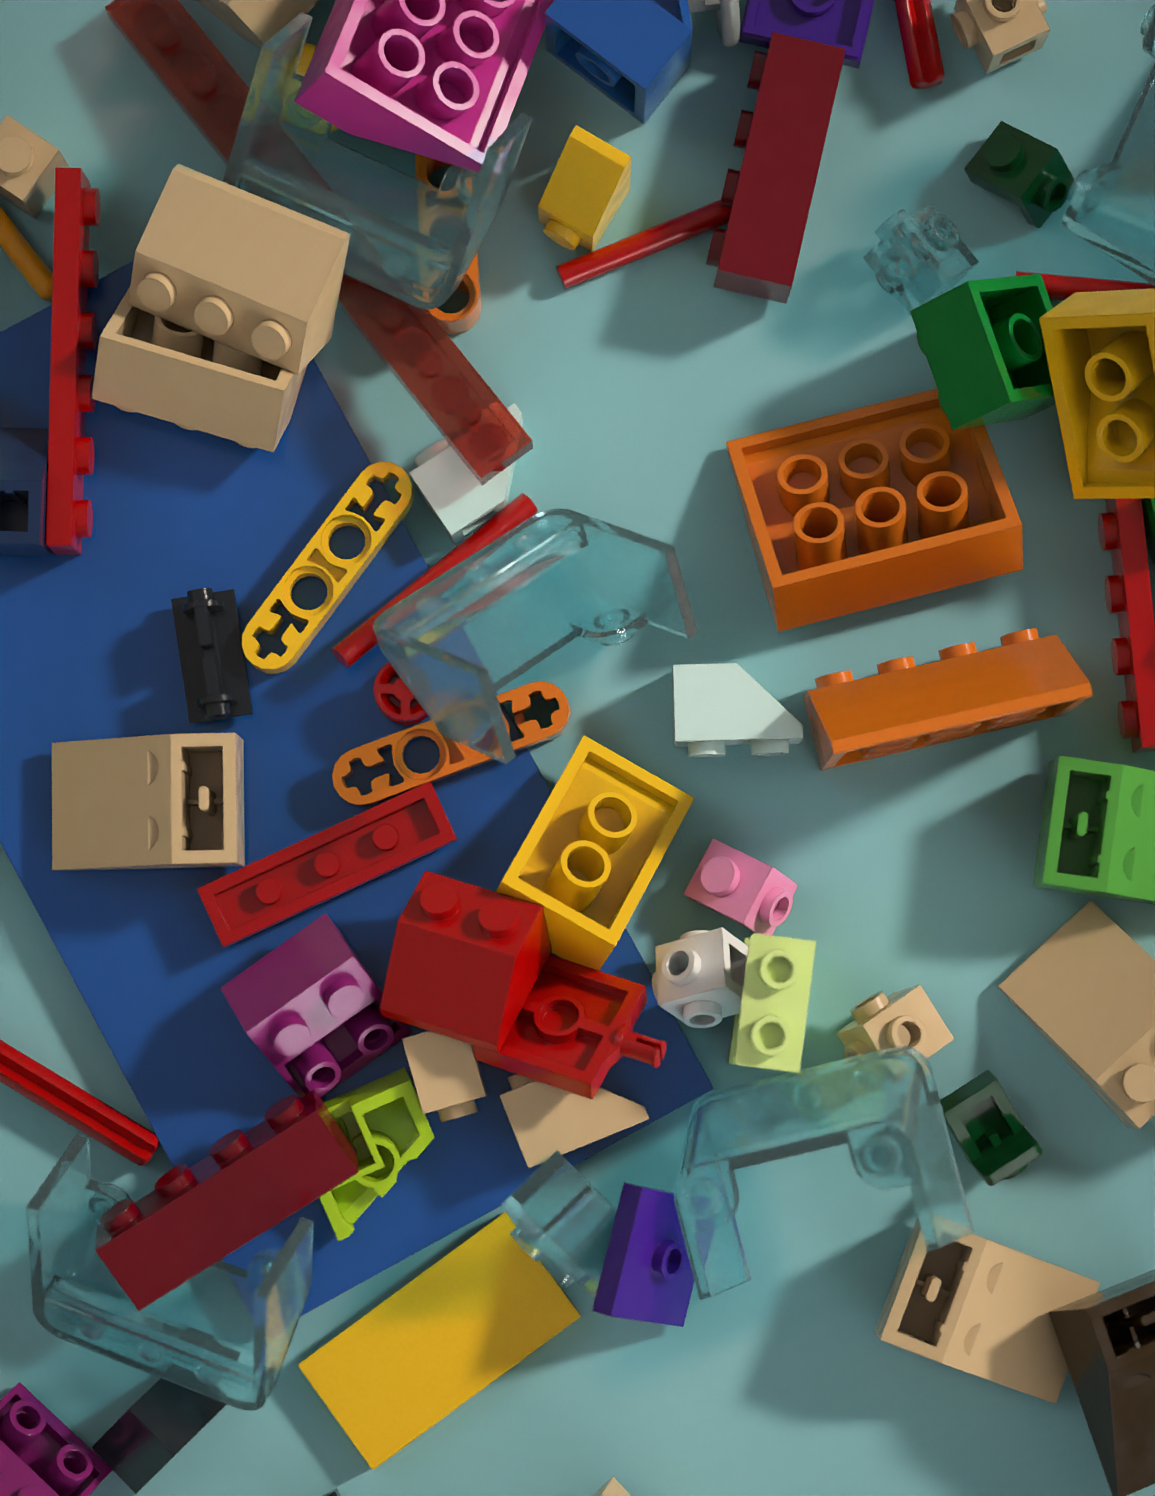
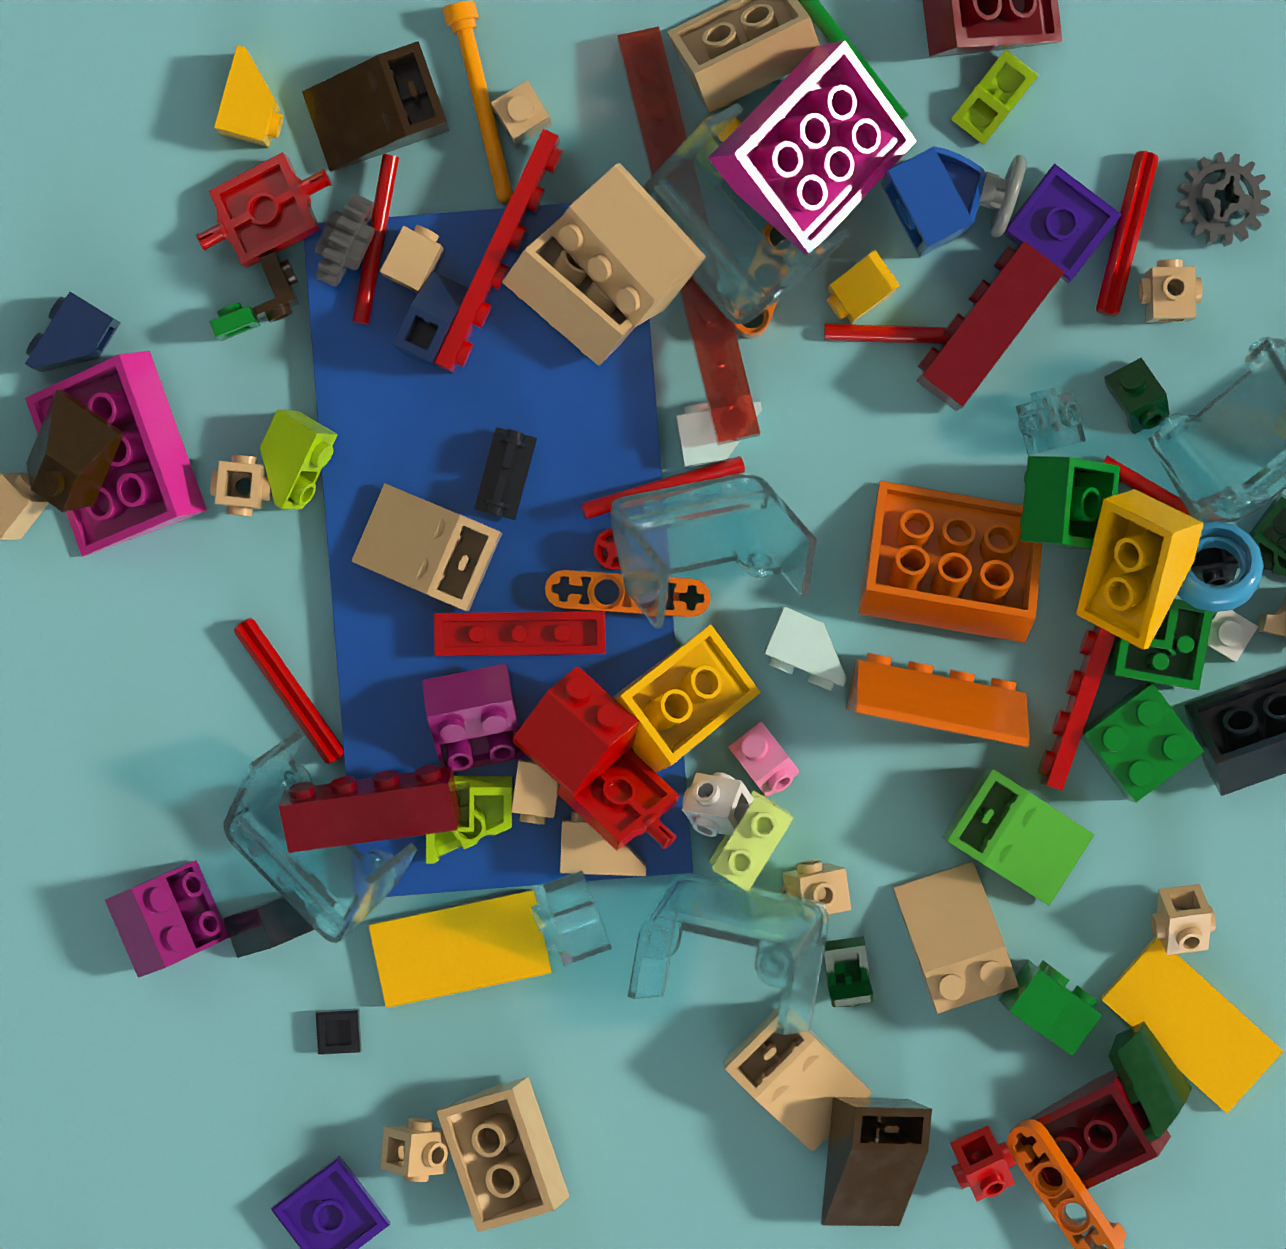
camera: 20 degrees right, 5 degrees up
(320, 562) = (603, 455): yellow beam -> none
(646, 1261) = (606, 958): dark purple plate -> none

